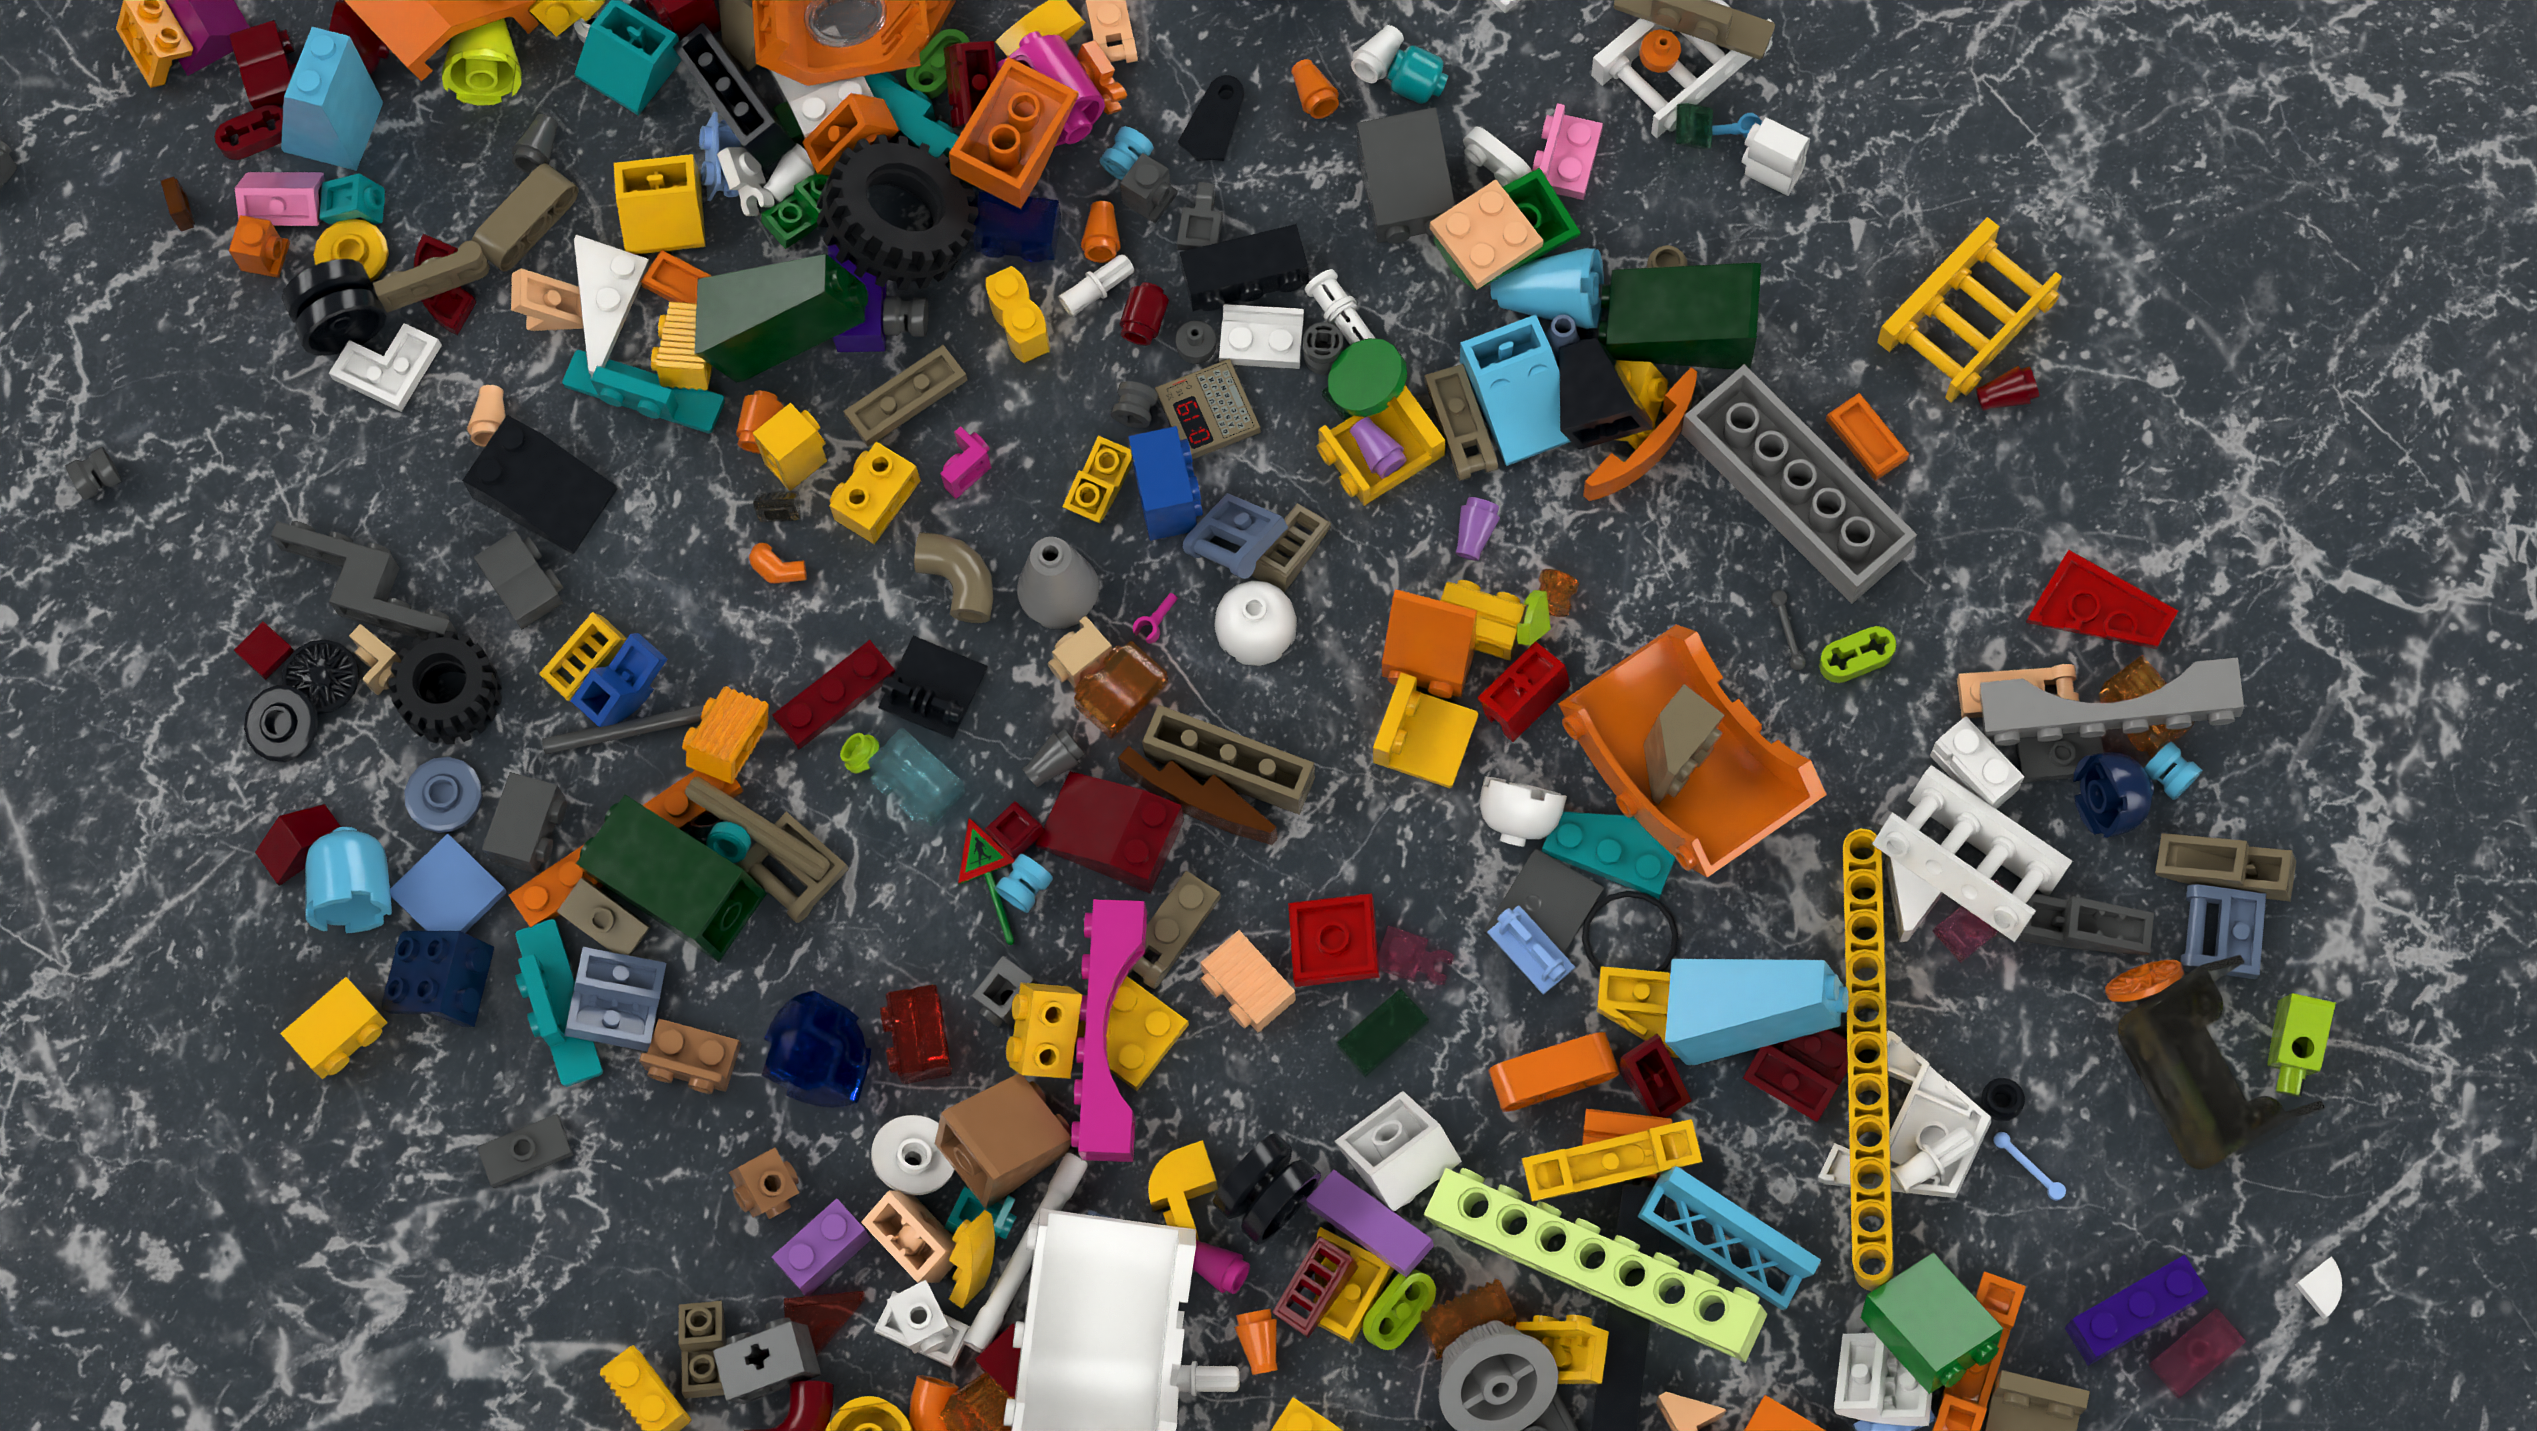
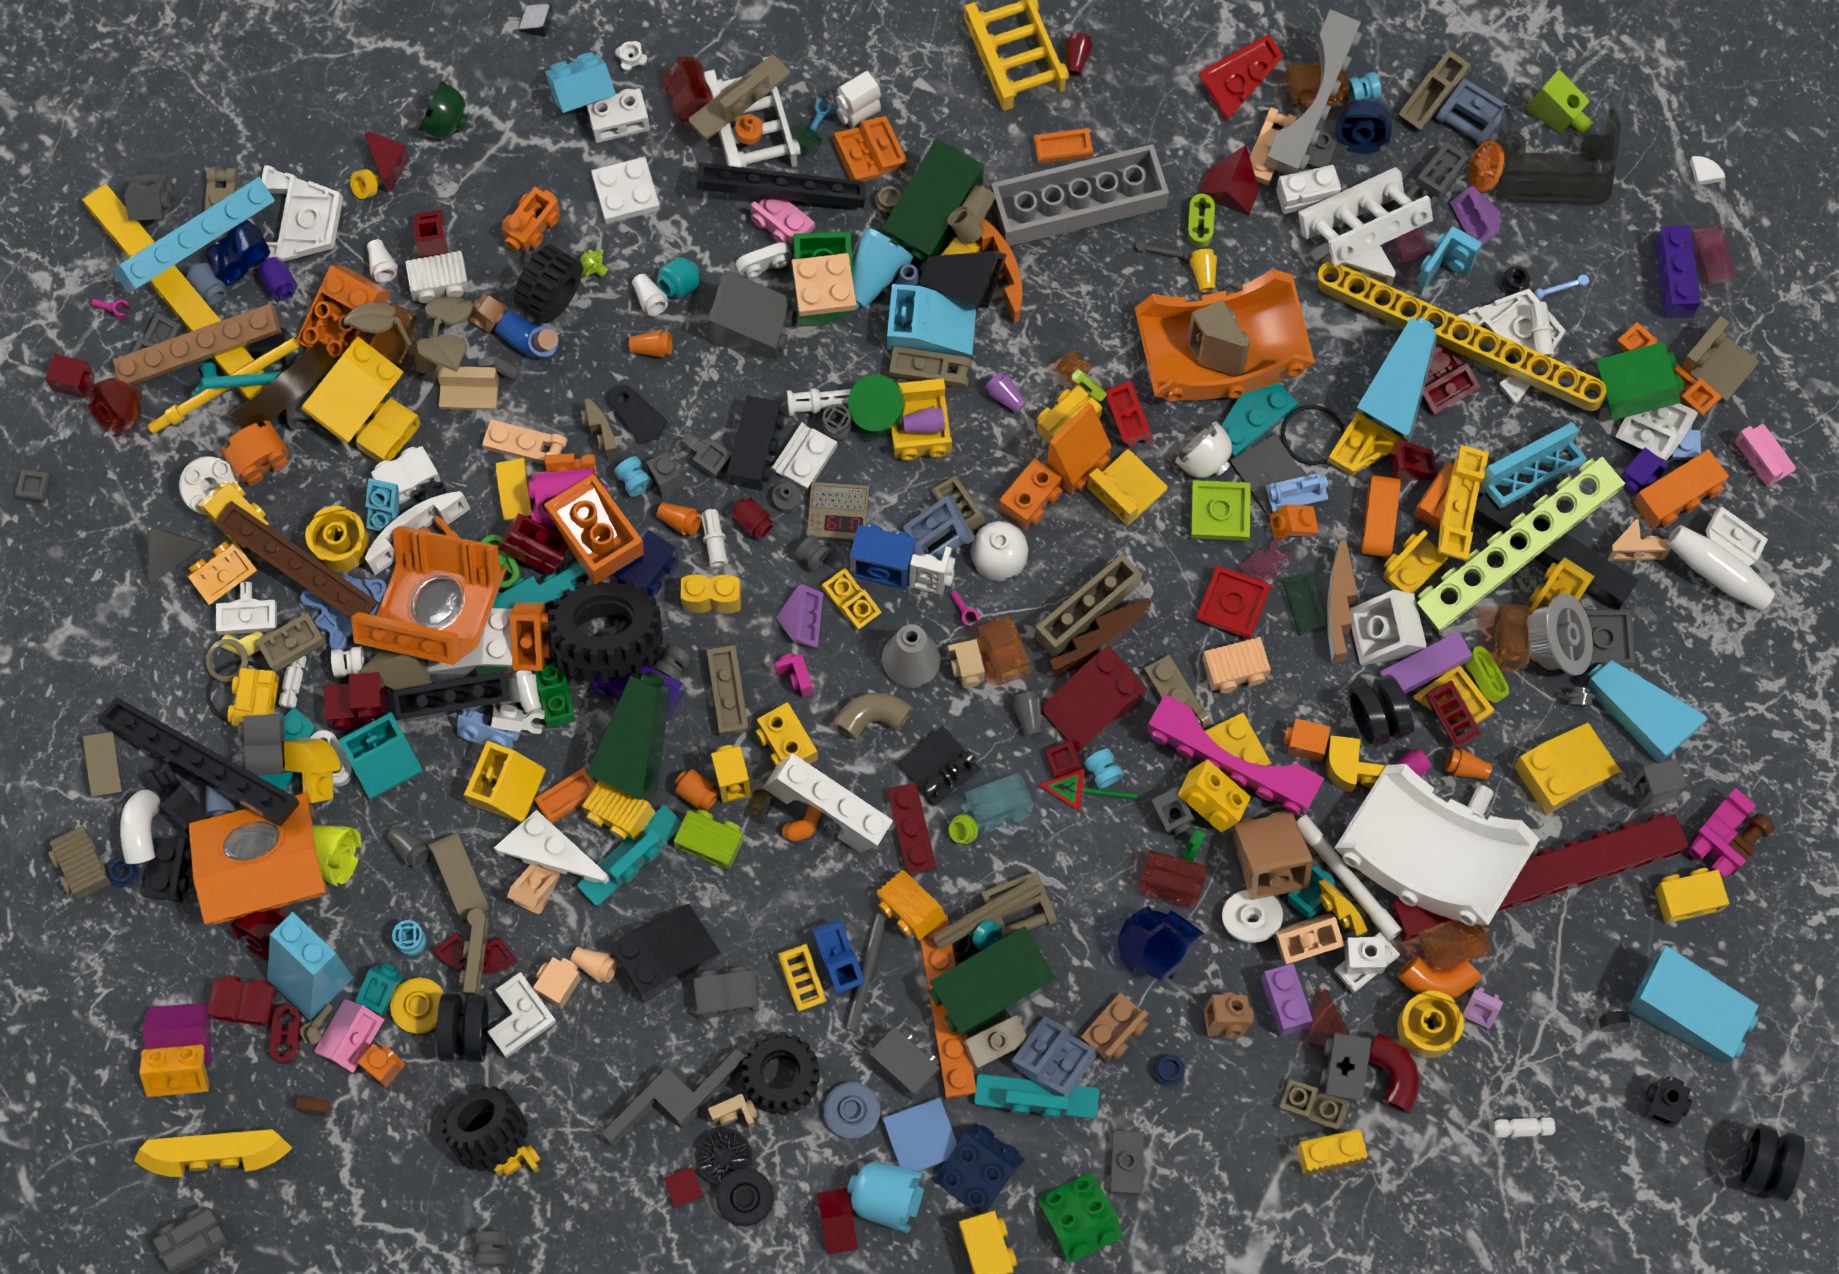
camera: 70 degrees left, 0 degrees up
(95, 159) = (173, 1155): none -> yellow brick
(216, 447) = (514, 1164): none -> yellow bracket
(222, 390) = (485, 1128): none -> black tyre
(267, 153) = (310, 1031): none -> dark tan hand
(422, 209) = (413, 942): none -> medium azure wheel
(425, 1124) = (1081, 1217): none -> green bracket
(445, 386) = (557, 981): none -> light nougat brick
(666, 1147) = (1169, 1070): none -> dark blue plate
(703, 466) = (709, 839): none -> lime brick
(796, 516) = (860, 822): none -> white arch
(978, 1042) = (1194, 845): none -> green tile
(1046, 436) = (802, 616): none -> medium lavender slope
(1175, 77) = (599, 427): none -> dark tan slope
(1180, 563) = (931, 574): none -> white bracket
(1188, 1115) = (1307, 740): none -> orange brick
(1347, 622) = (1031, 494): none -> orange brick
(1418, 1067) = (1340, 595): none -> medium nougat slope
(1454, 865) = (1220, 510): none -> lime plate
(1487, 966) = (1294, 521): none -> orange bracket
(1499, 1143) = (1414, 565): none -> yellow bracket
(1606, 126) = (780, 185): none -> black plate
(1674, 360) = (967, 219): none -> dark tan piece
(1724, 209) = (869, 149): none -> orange slope
(1787, 689) = (1204, 268): none -> yellow cone
(1803, 1389) = (1642, 471): none -> dark purple brick
(1933, 668) = (1232, 182): none -> dark red slope
(1980, 976) = (1455, 249): none -> medium azure bracket
(2070, 1007) = (1477, 215): none -> medium lavender slope

